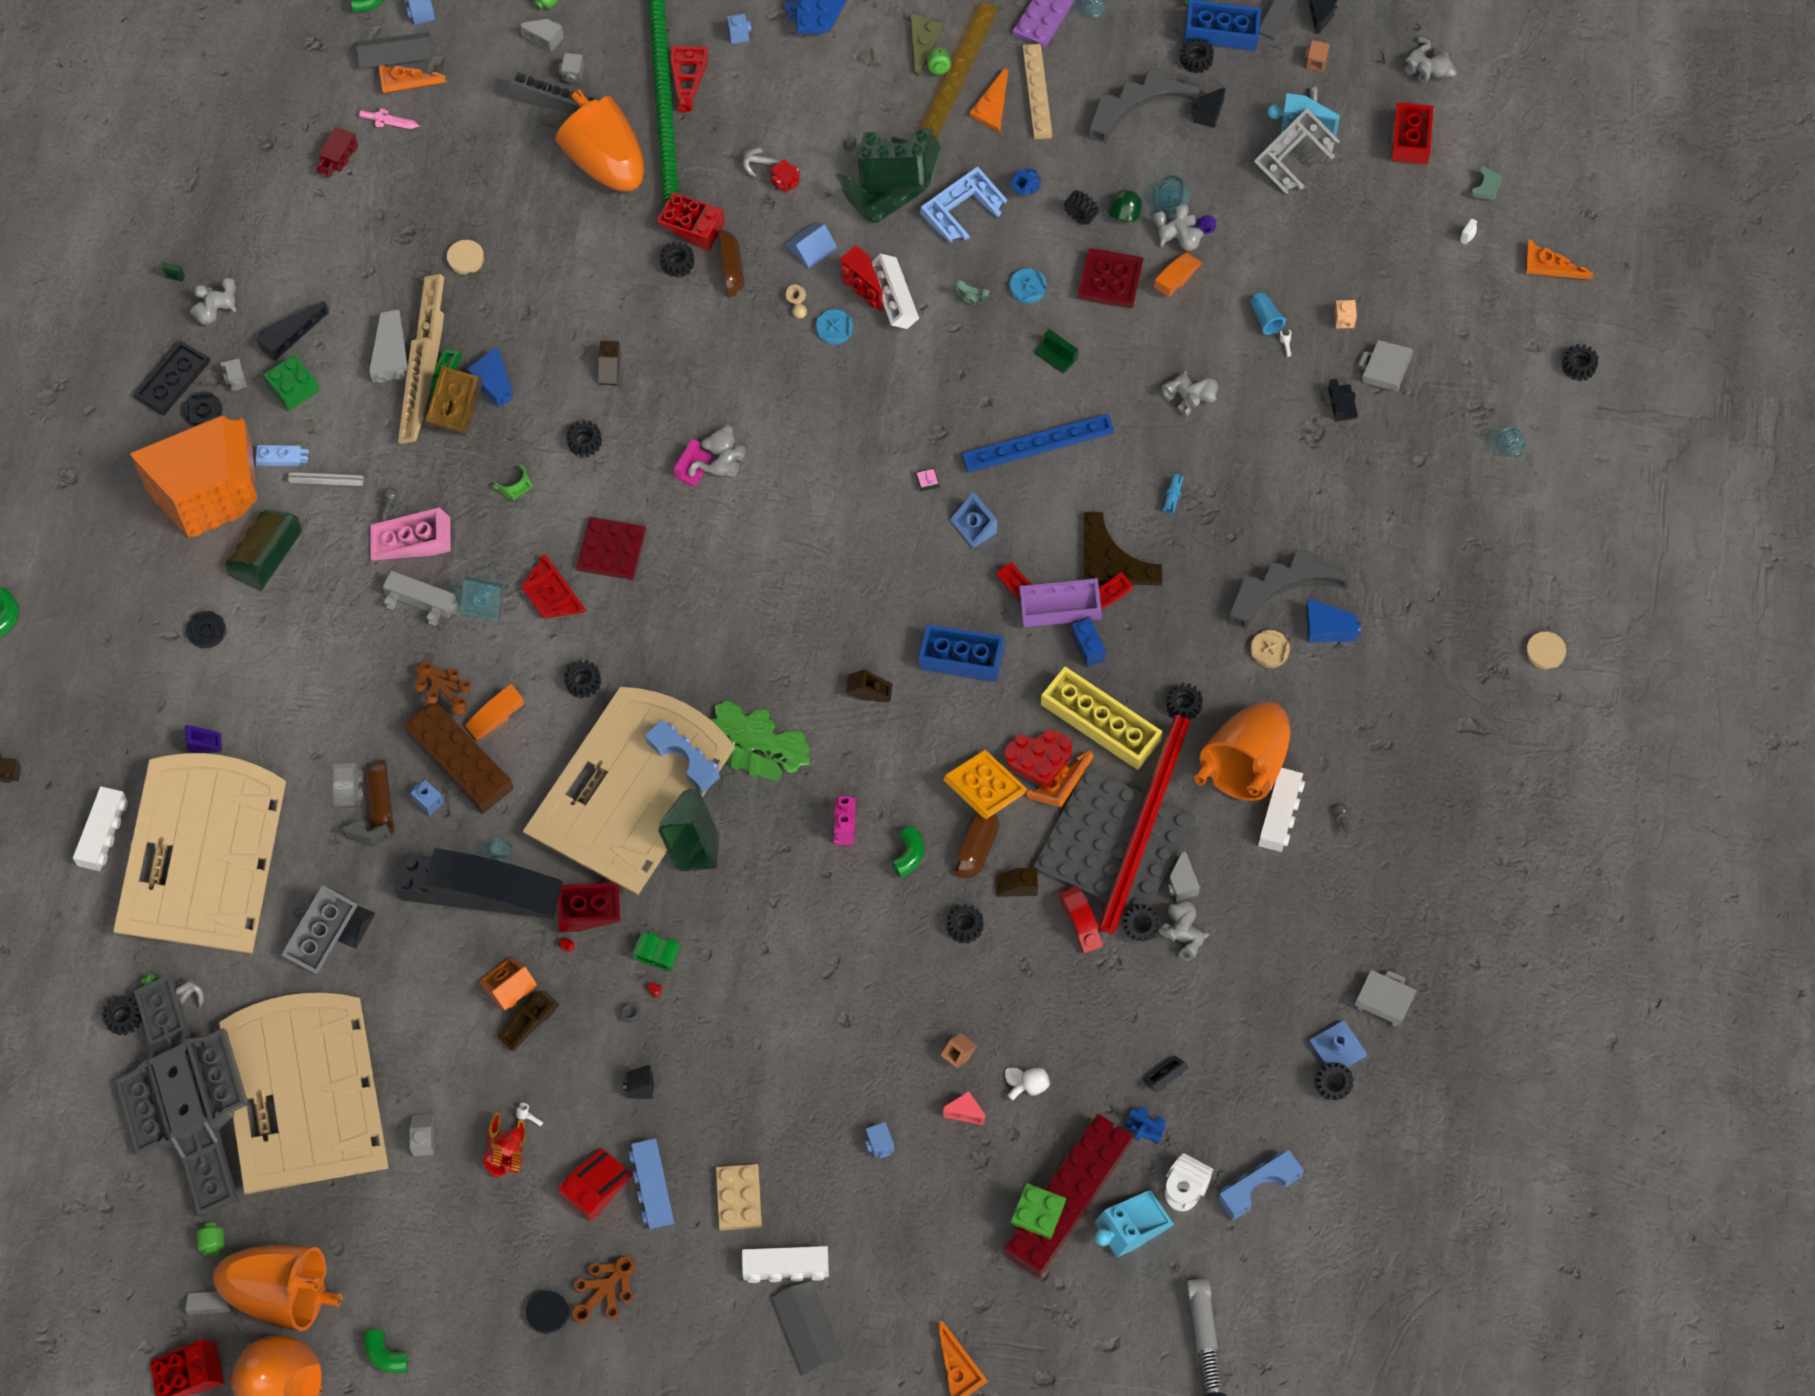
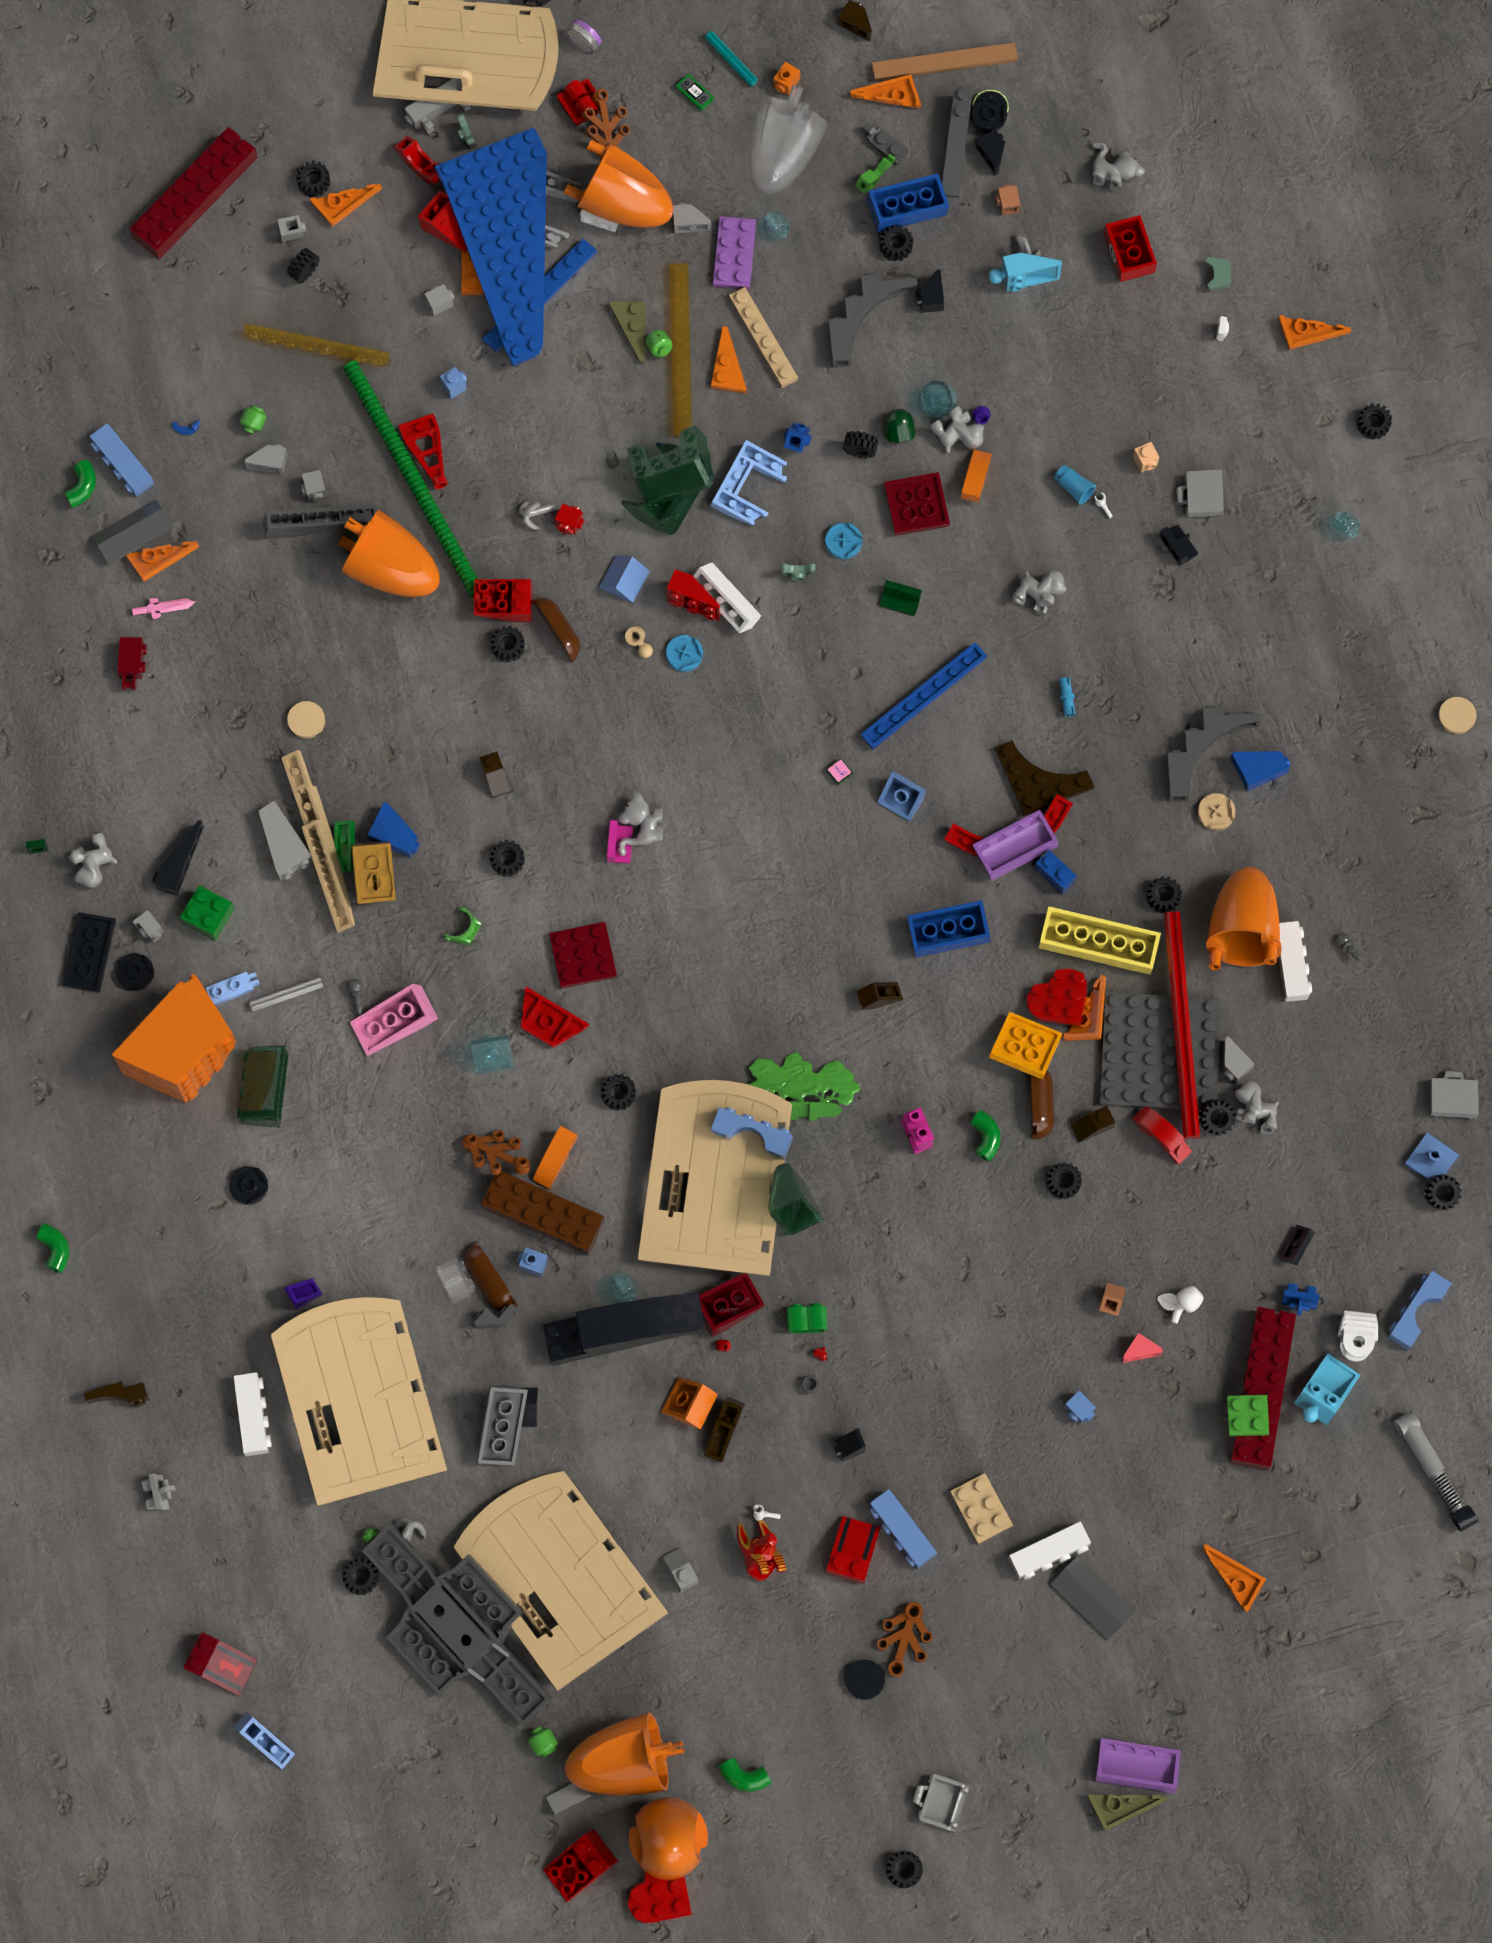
camera: 25 degrees left, 10 degrees up
(420, 595) = (431, 1072): light grey brick -> none
(1303, 125) = (1013, 325): light grey wedge -> none

